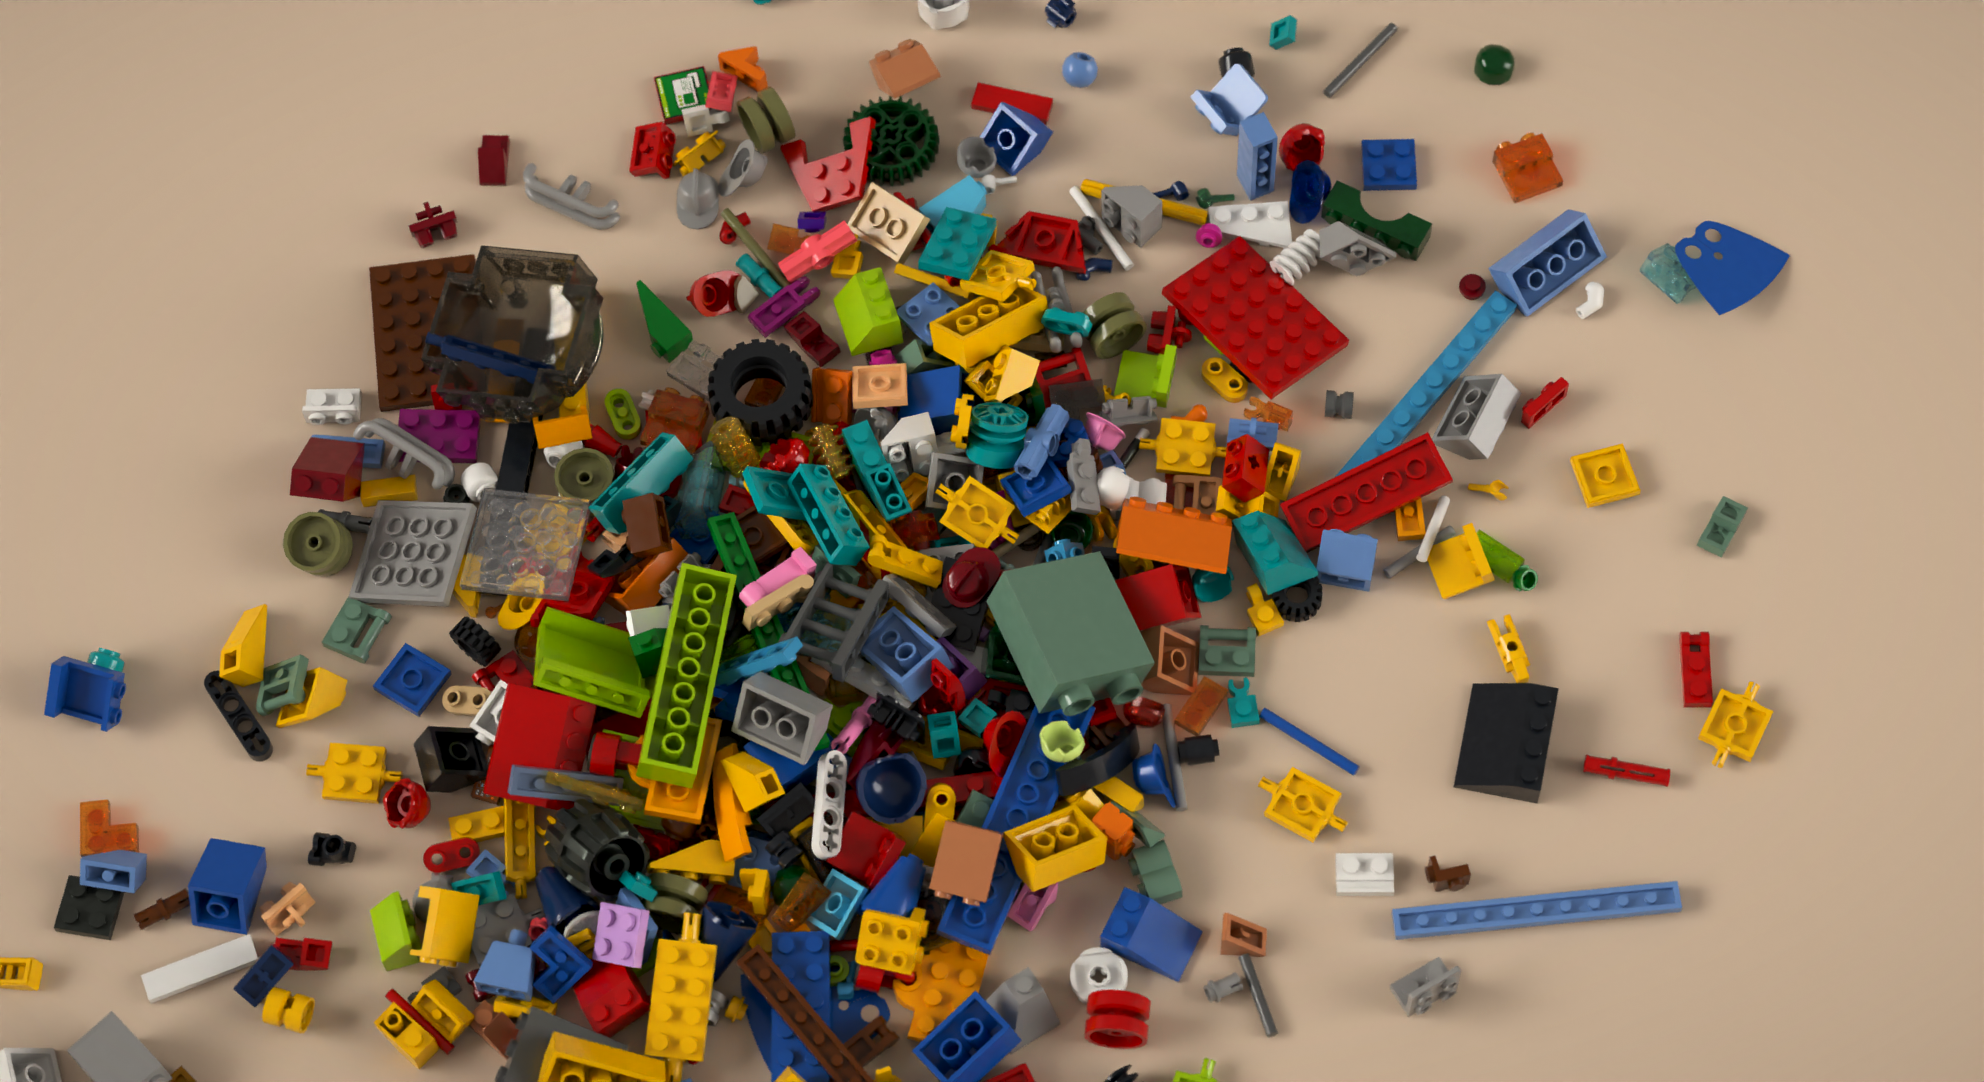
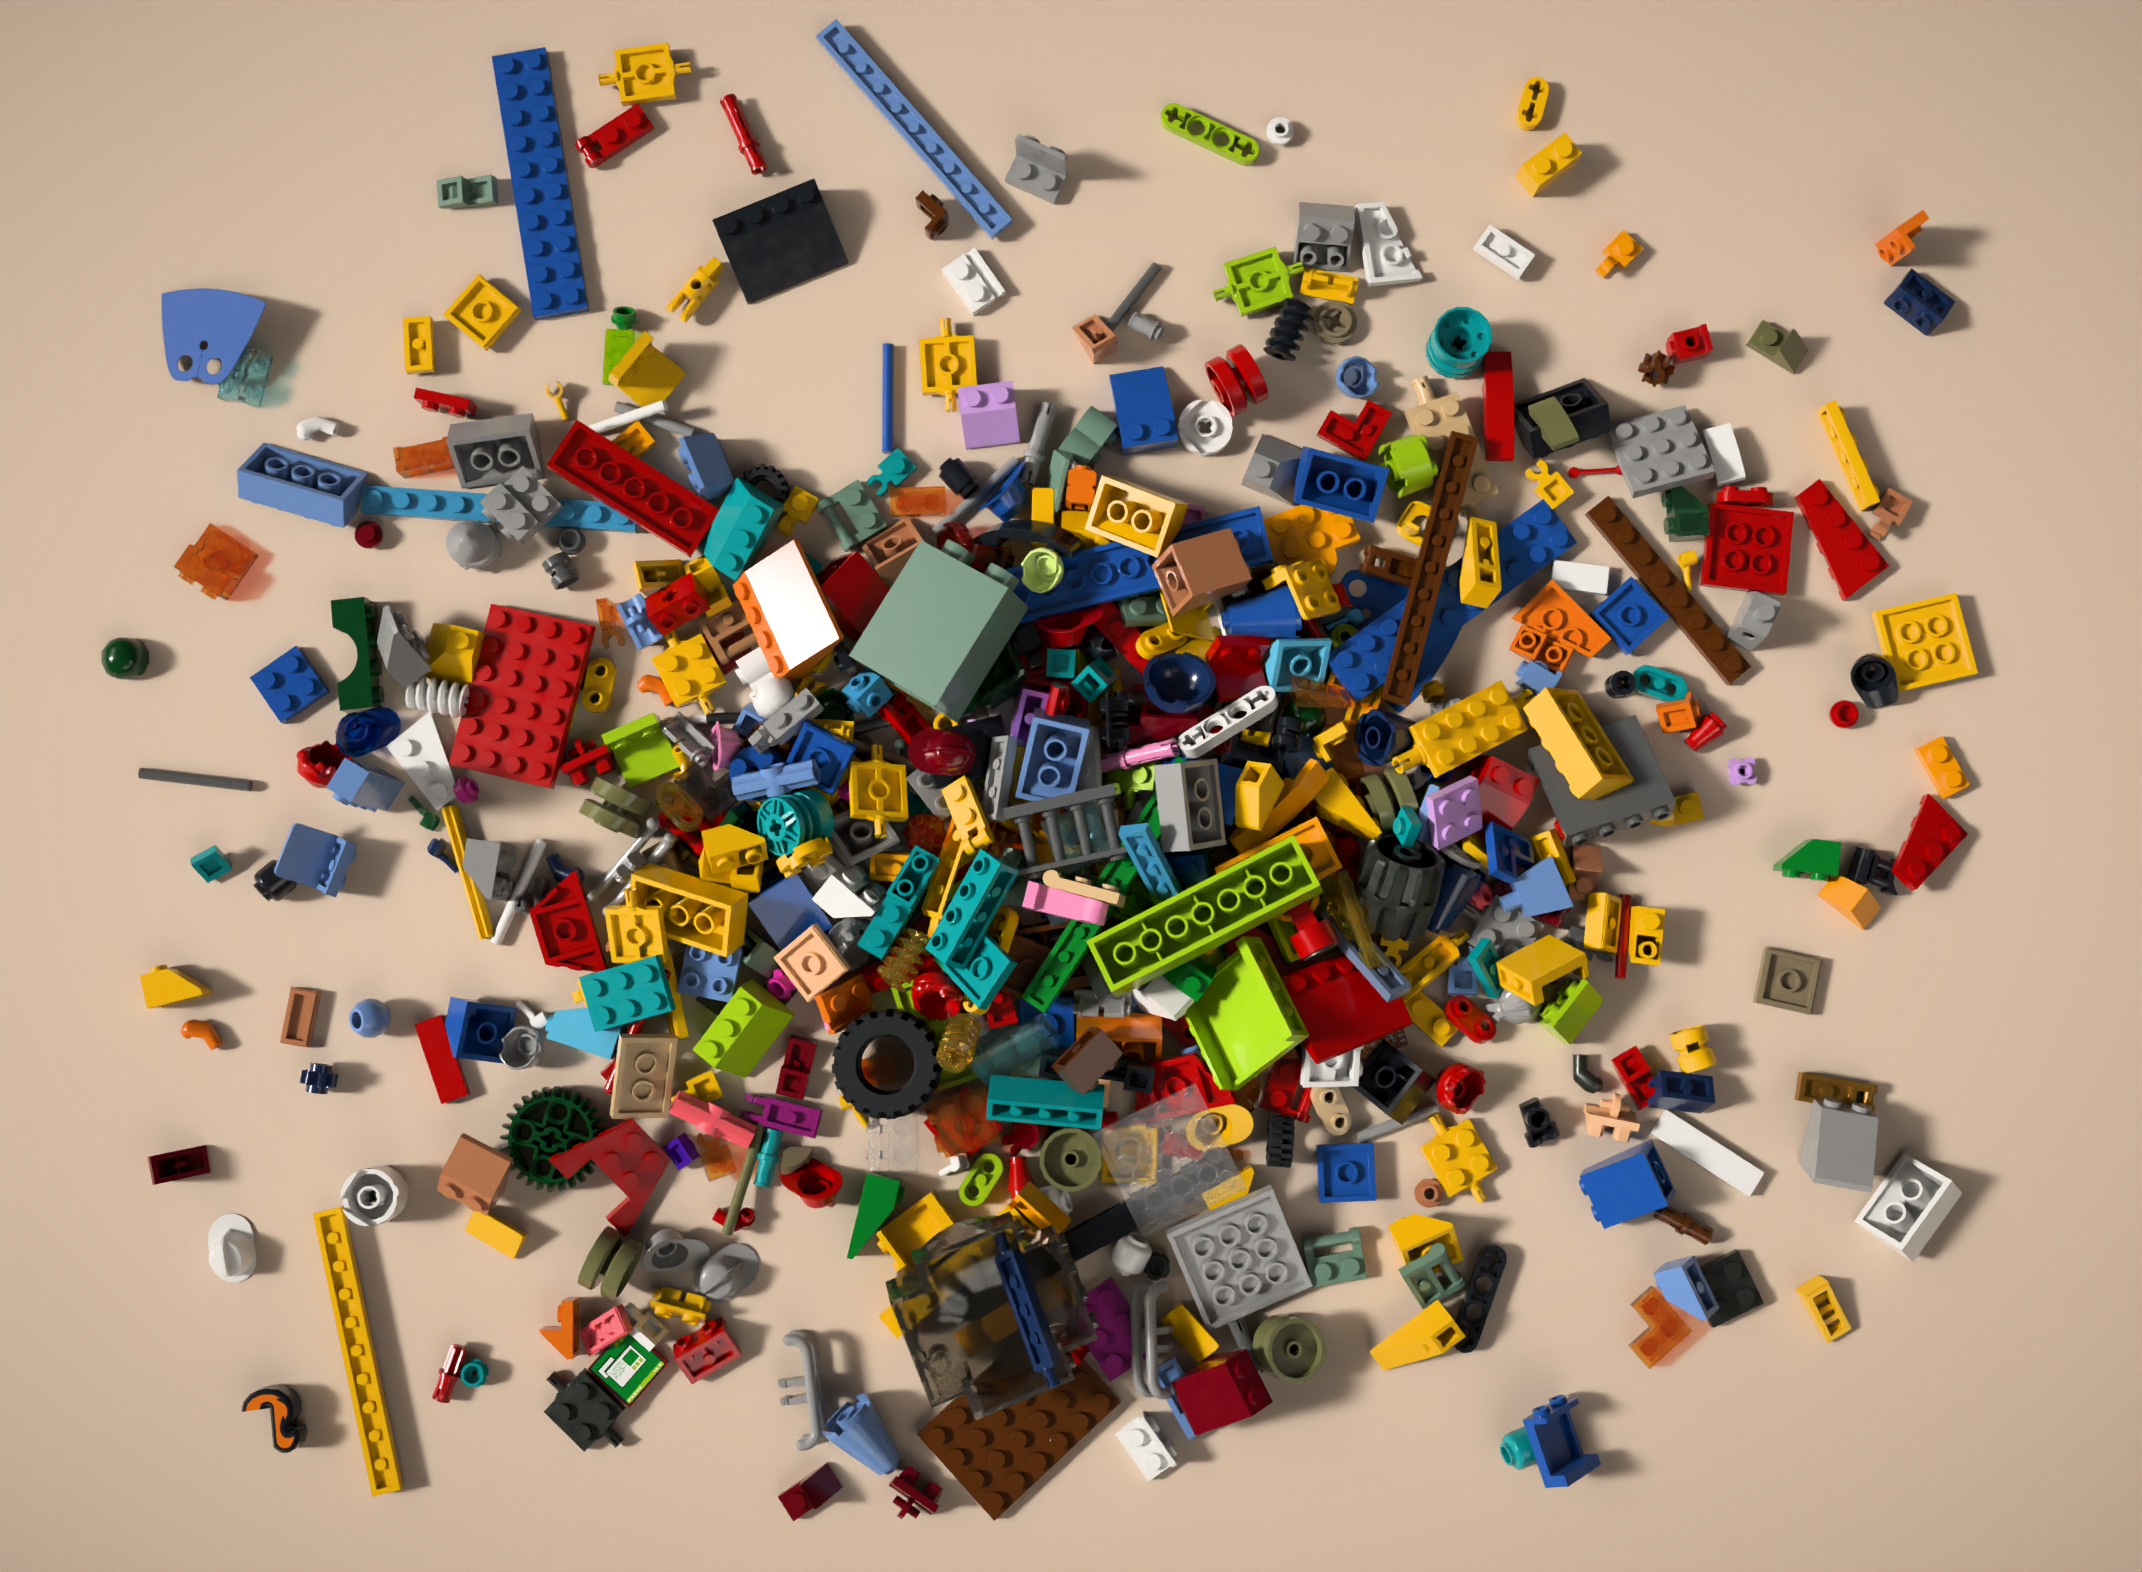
camera: 125 degrees left, 20 degrees up
(337, 912) = (1583, 1077): none -> pearl dark grey arm
(349, 738) = (1420, 1189): none -> nougat plate
(412, 762) = (1391, 1124): none -> light grey bar
(503, 214) = (863, 1435): none -> medium blue cone
(622, 346) = (913, 1229): none -> yellow panel
(676, 48) = (584, 1409): none -> pearl dark grey plate
(851, 66) = (497, 1233): none -> yellow slope
(1066, 322) = (645, 851): teal plate -> none
(1076, 368) = (679, 808): none -> clear yellow plate
(1119, 28) = (300, 1017): none -> nougat tile
(1174, 823) = (1034, 455): none -> light grey pin
(1235, 808) = (988, 415): none -> lavender slope
(1329, 290) = (453, 653): none -> yellow slope
(1359, 428) = (571, 541): none -> dark grey plate
(1407, 354) = (473, 545): none -> light grey hair
(1412, 402) = (520, 506): none -> light grey plate
(1511, 357) = (423, 458): none -> clear orange hinge
(1609, 412) = (419, 345): none -> yellow plate
(1693, 587) = (540, 183): none -> blue plate

